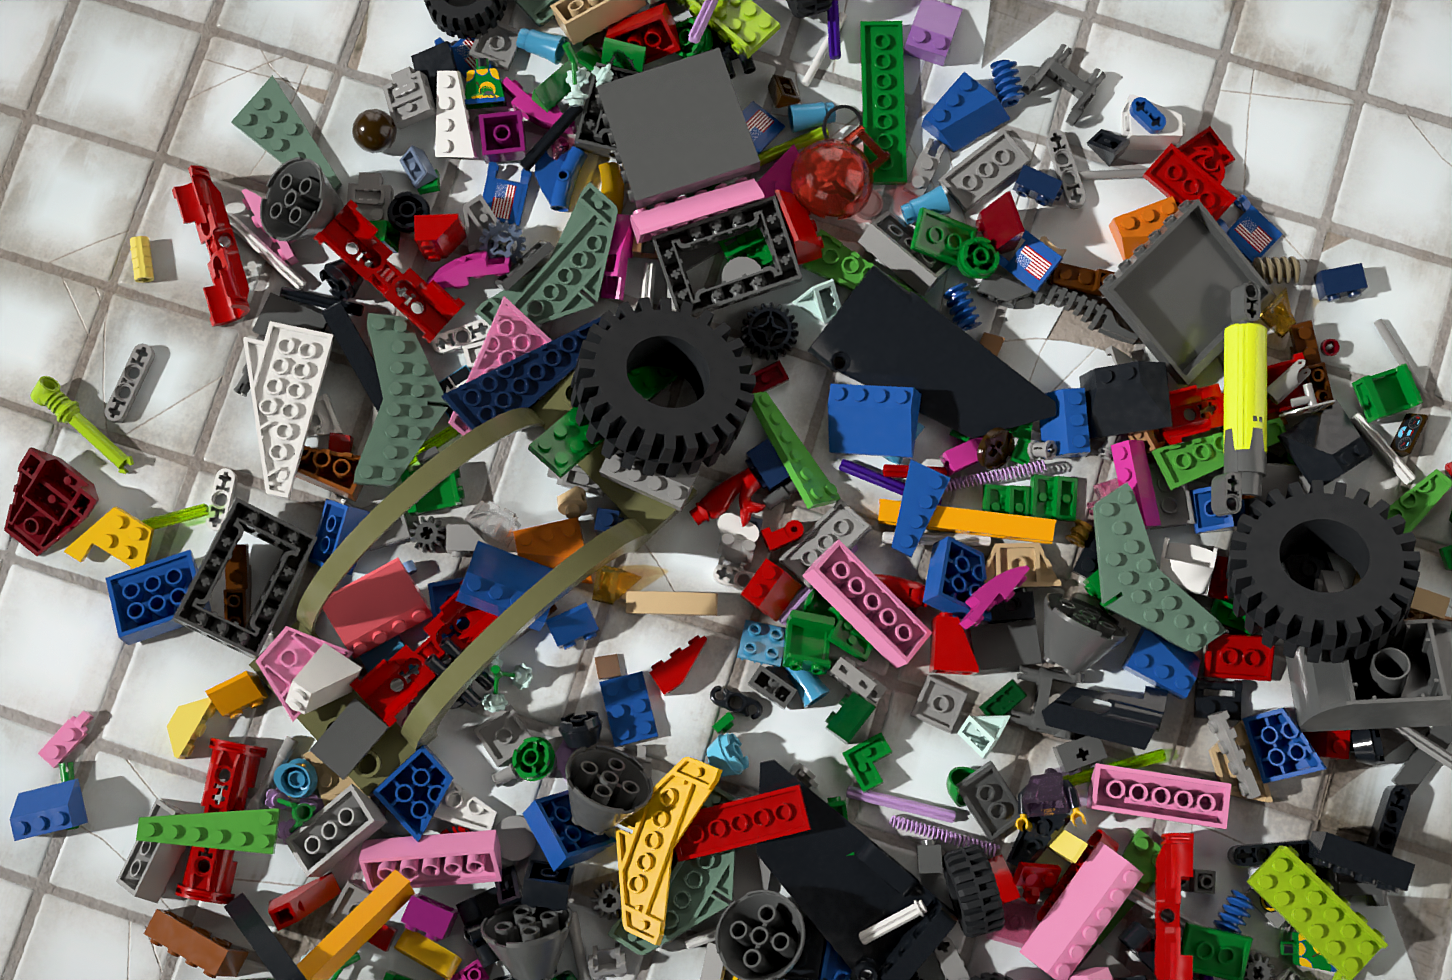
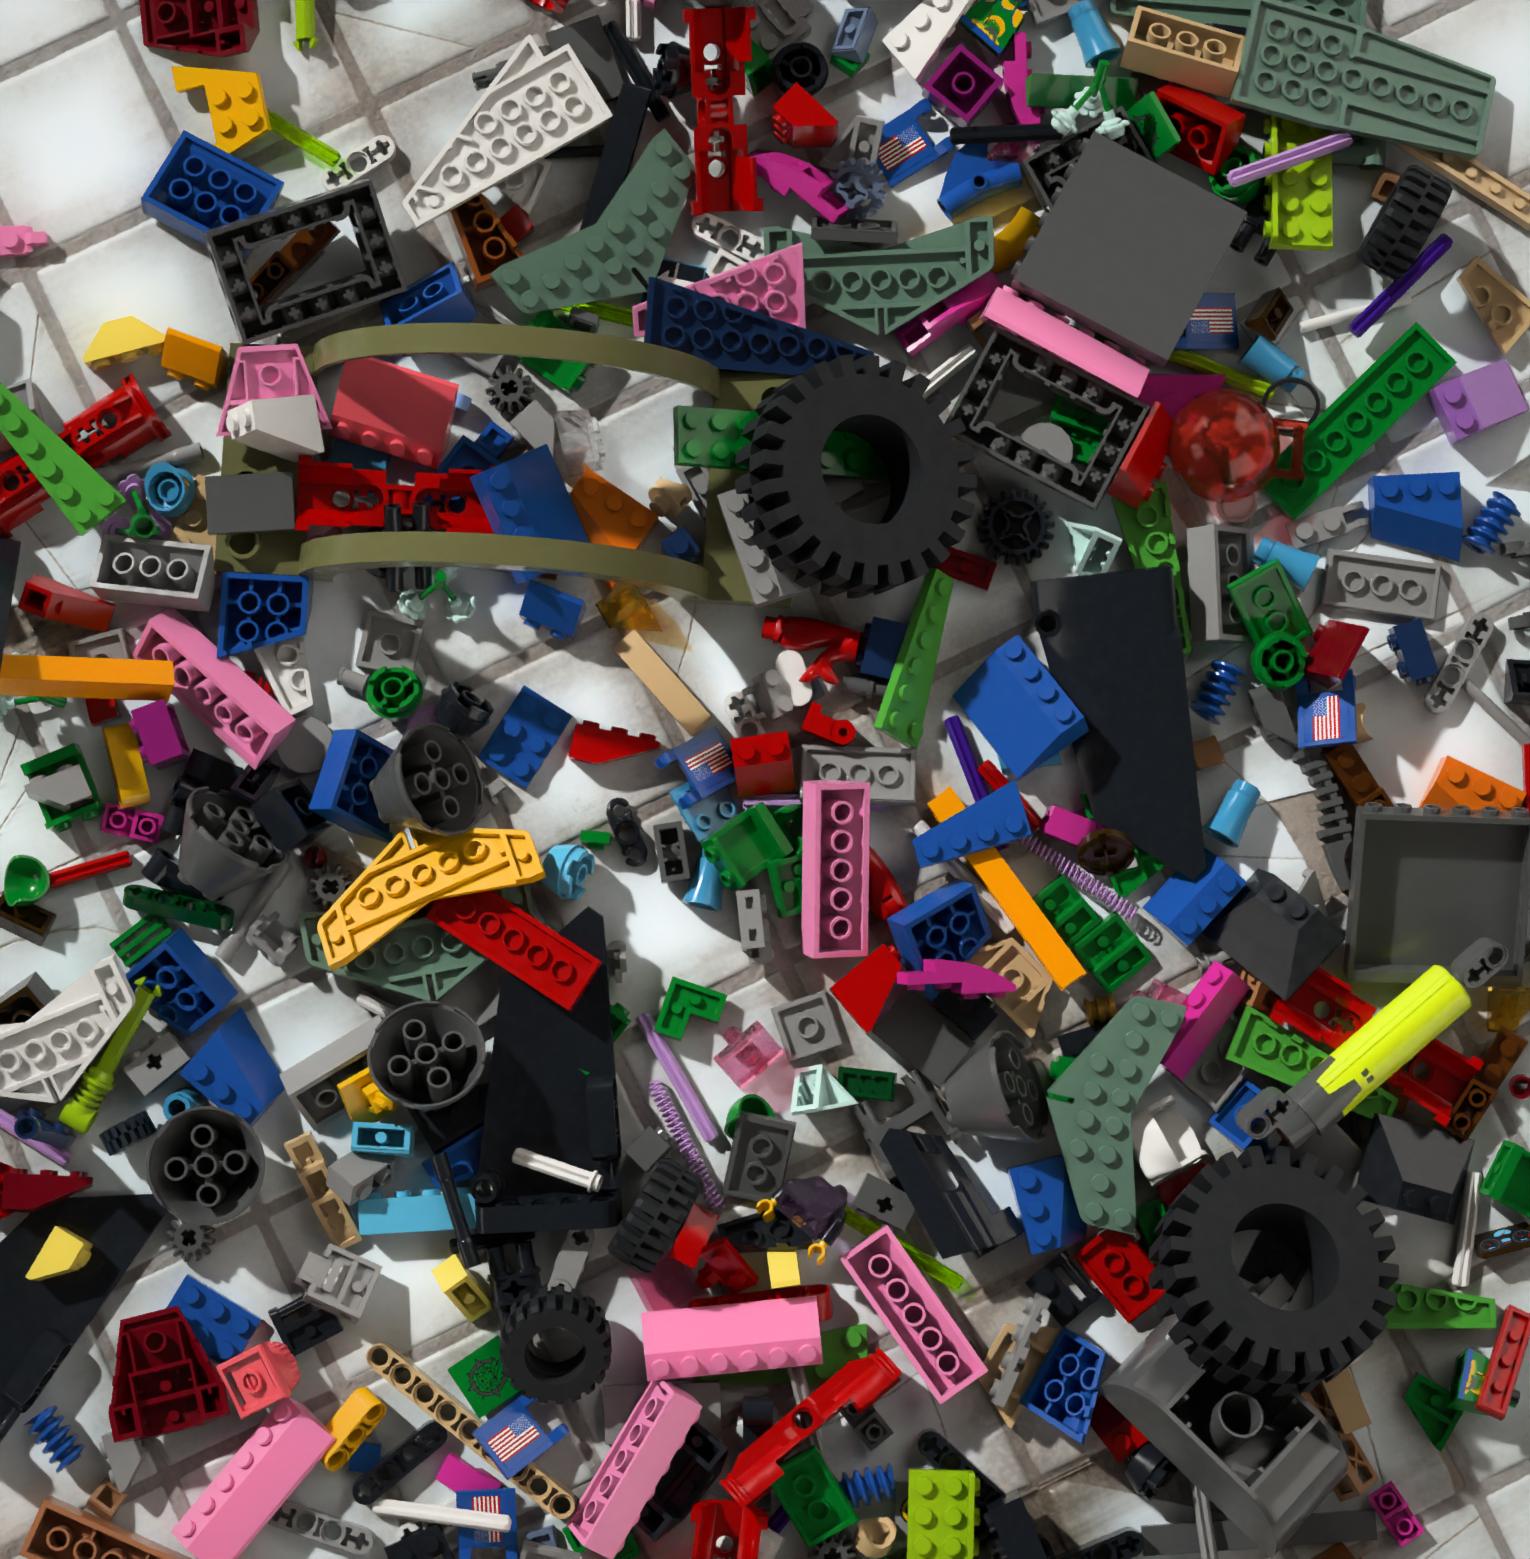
camera: 45 degrees right, 5 degrees up
(335, 372) = (577, 152): none -> black bar
(447, 569) = (494, 440): none -> blue tile
(587, 890) = (321, 858): none -> dark red hinge
(607, 666) = (545, 679): medium nougat slope -> none
(740, 622) = (705, 764): none -> blue flag
(850, 717) = (712, 951): dark green slope -> none
(925, 751) = (747, 1053): none -> clear pink tile
(1037, 361) = (1233, 813): none -> dark azure plant
(1042, 448) = (1145, 899): light grey bush -> none
(1266, 939) = (875, 1536): none -> tan piece
(1287, 382) = (1440, 1074): light grey piece -> none
(1309, 399) = (1441, 1110): light grey shield -> none

